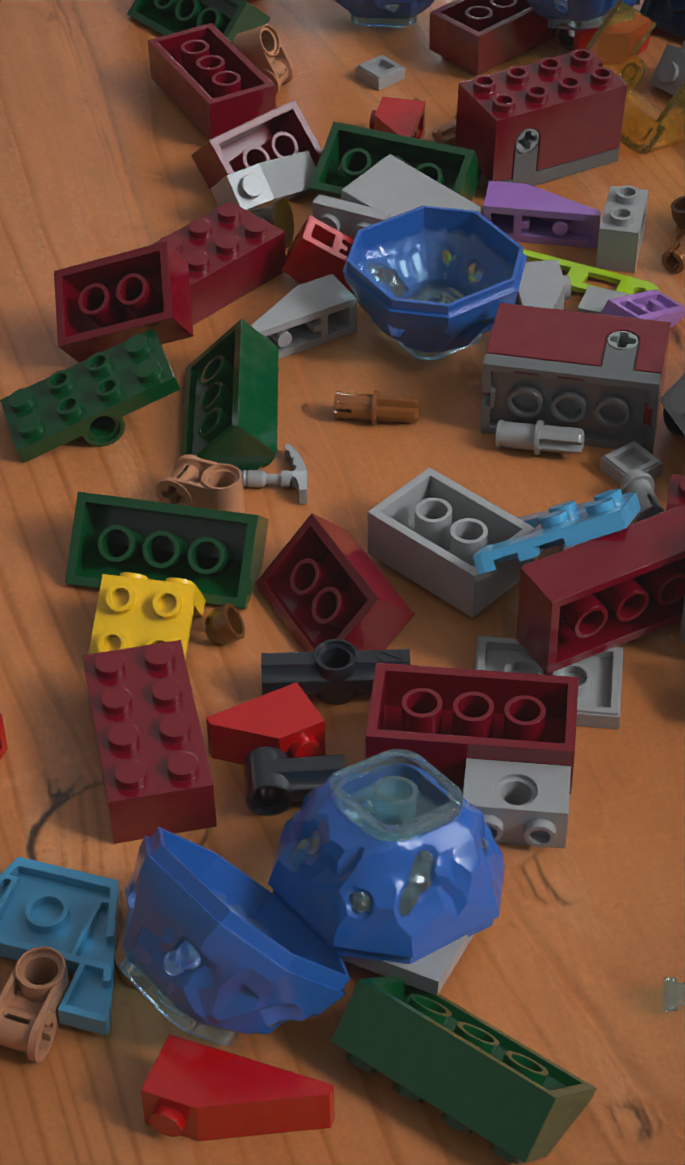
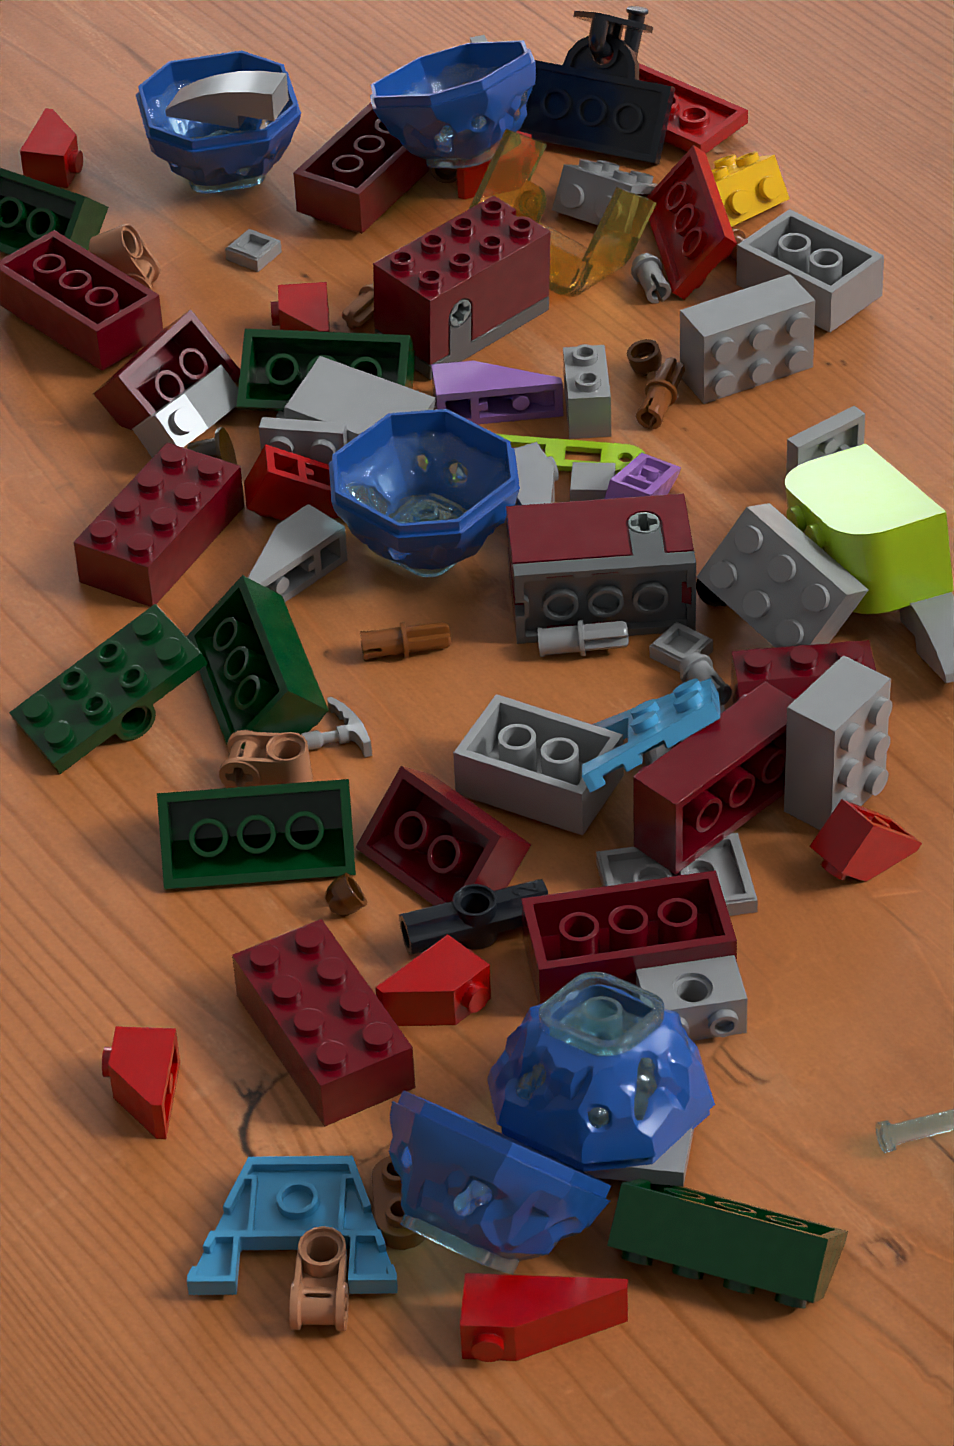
camera: 15 degrees left, 0 degrees up
(123, 297) = (107, 581): dark red brick -> none
(144, 612) = (263, 902): yellow bracket -> none
(276, 780) = (462, 1032): black piece -> none

